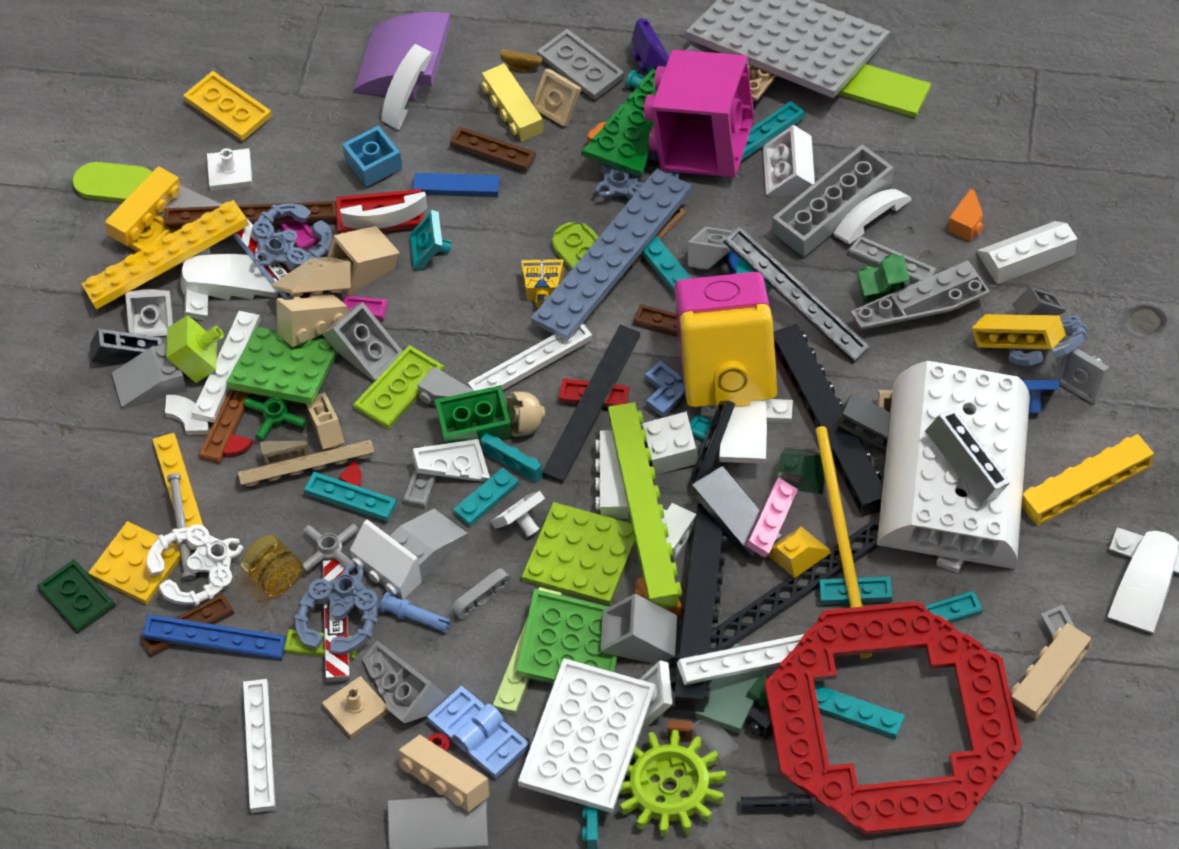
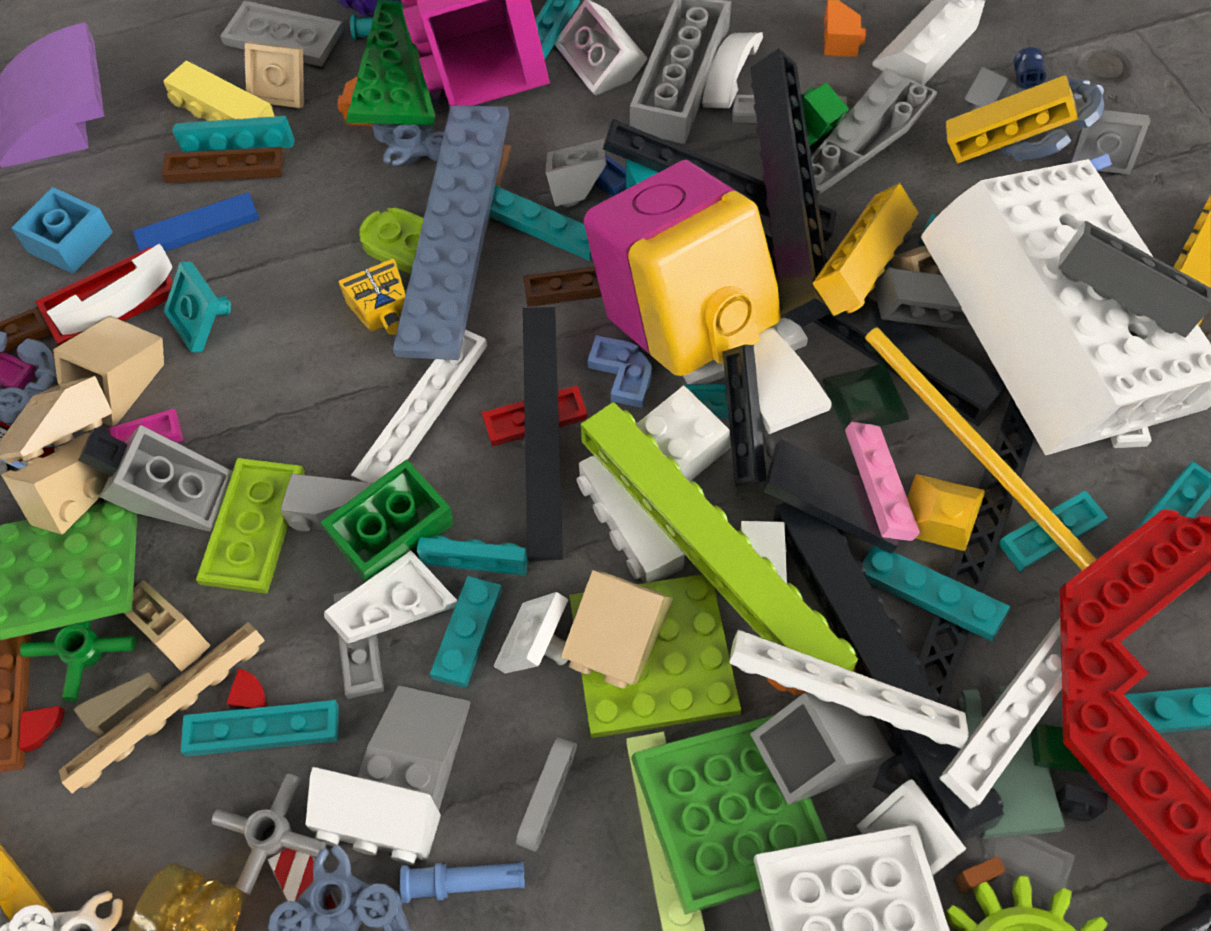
camera: 30 degrees left, 5 degrees up
(335, 308) = (102, 452): none -> black plate
(402, 85) = (62, 126): white slope -> none
(509, 131) = (234, 134): none -> teal plate
(520, 61) = (206, 53): pearl gold tile -> none
(524, 413) = (458, 482): tan cylinder -> none
(564, 525) = (615, 628): none -> tan slope
(659, 601) = (849, 689): none -> white plate
(758, 590) = (935, 593): none -> teal plate
(833, 314) = (789, 187): none -> black brick
(855, 376) = (866, 250): none -> yellow brick
(1080, 299) = (1029, 67): none -> dark blue wheel

